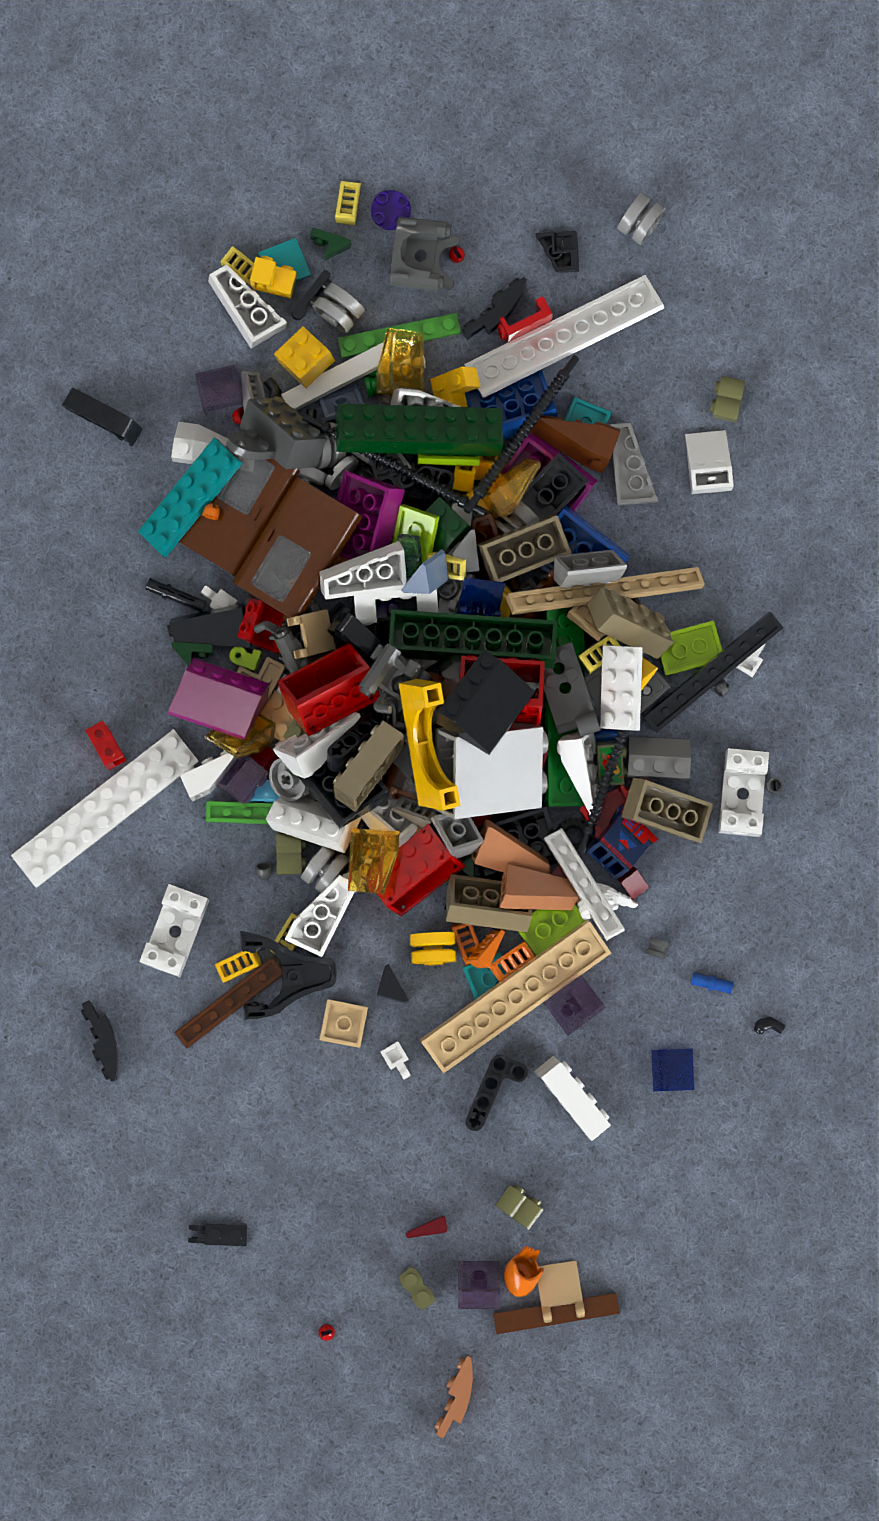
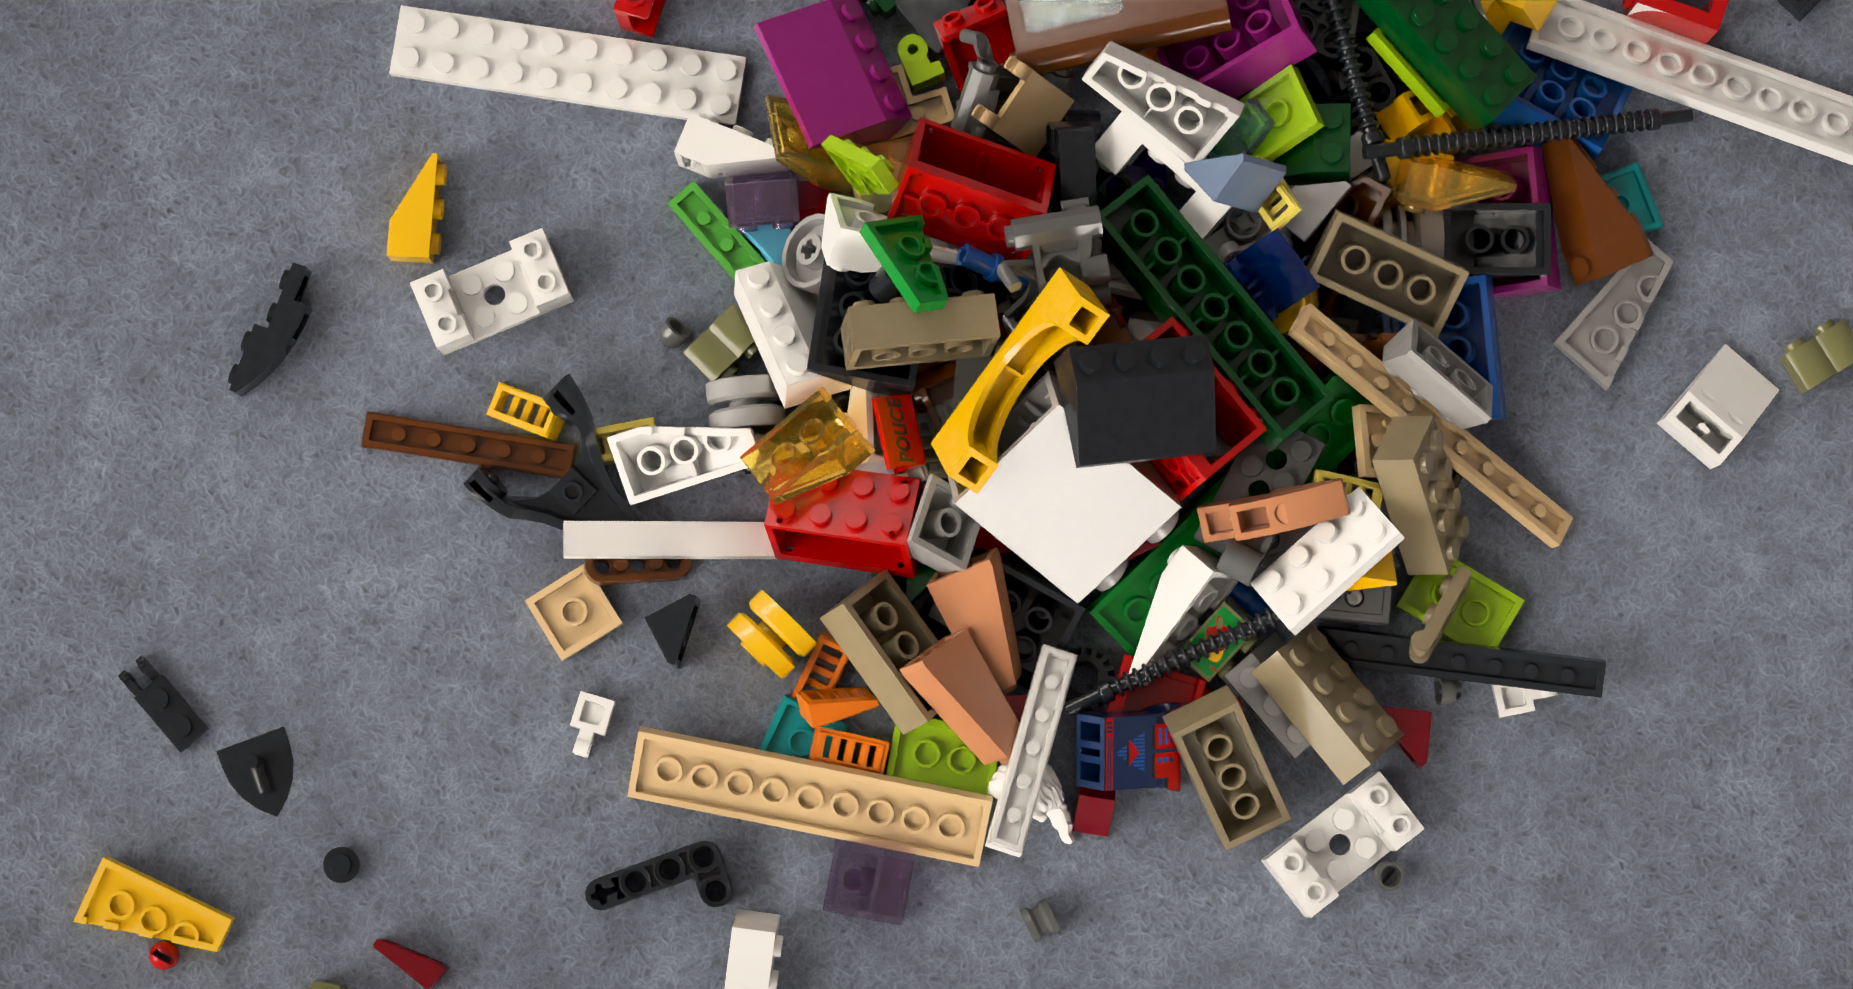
camera: 45 degrees right, 0 degrees up
(111, 936) = (414, 223): none -> yellow slope
(274, 725) = (861, 167): none -> lime wing
(285, 1219) = (260, 769): none -> black shield
(301, 1319) = (145, 906): none -> yellow wing
(334, 743) = (907, 260): none -> green wing
(351, 954) = (665, 540): none -> white tile
(352, 969) = (622, 573): none -> reddish brown plate
(358, 1221) = (341, 864): none -> black plate
(364, 712) = (983, 263): none -> blue pin
(401, 814) = (899, 433): none -> red panel
(580, 691) = (1273, 512): none -> nougat slope
(680, 743) = (1328, 703): none -> dark tan brick
(686, 662) = (1439, 615): none -> dark tan plate
(722, 720) = (1416, 731): none -> dark red slope

